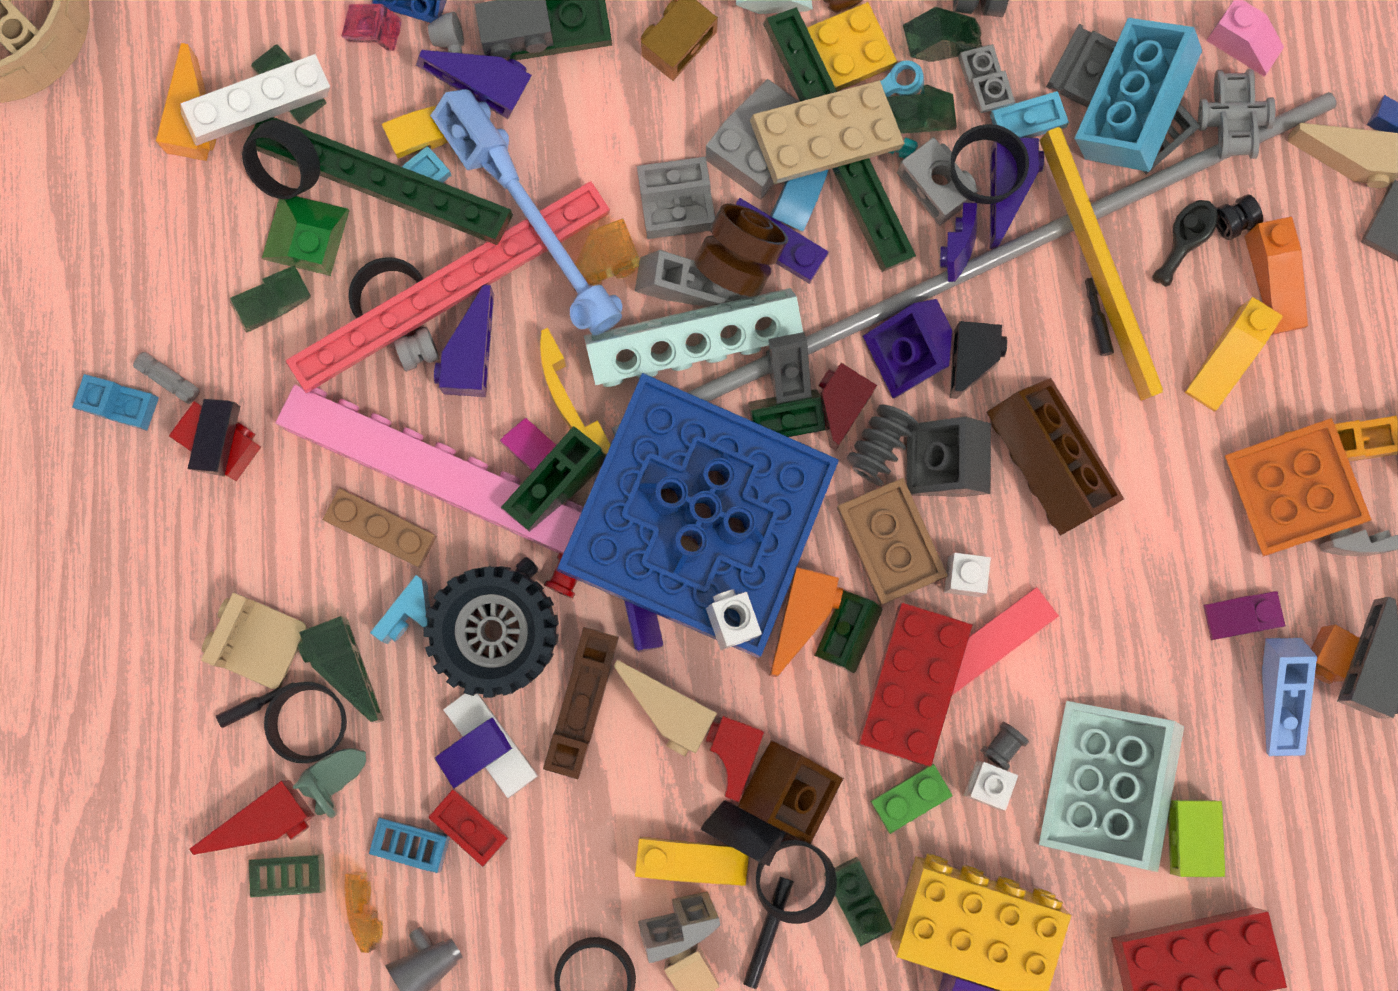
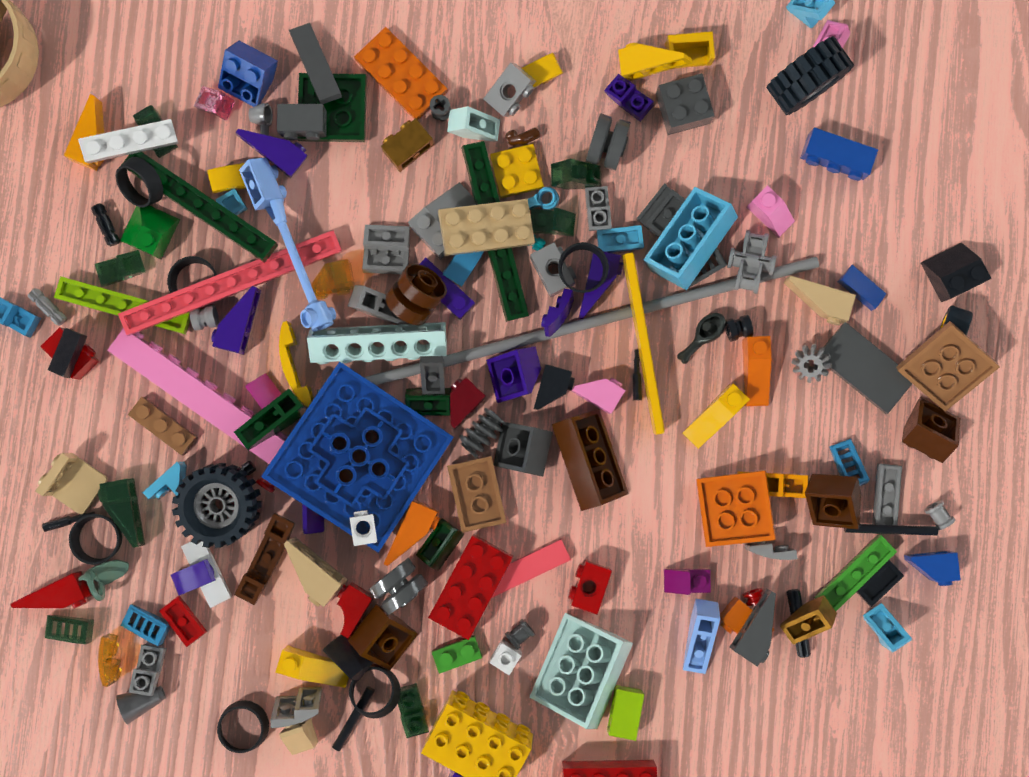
camera: 15 degrees right, 5 degrees up
(235, 237) = (105, 224): none -> black axle
(265, 352) = (110, 302): none -> lime plate
(426, 916) = (148, 670): none -> light grey slope
(806, 707) = (398, 586): none -> dark grey wheel
(967, 575) = (518, 524): white brick -> none
(1051, 353) = (601, 393): none -> bright pink slope
(1112, 635) = (591, 600): none -> red brick
(1353, 619) = (753, 596): none -> red bush
(1371, 238) = (802, 363): none -> light grey gear

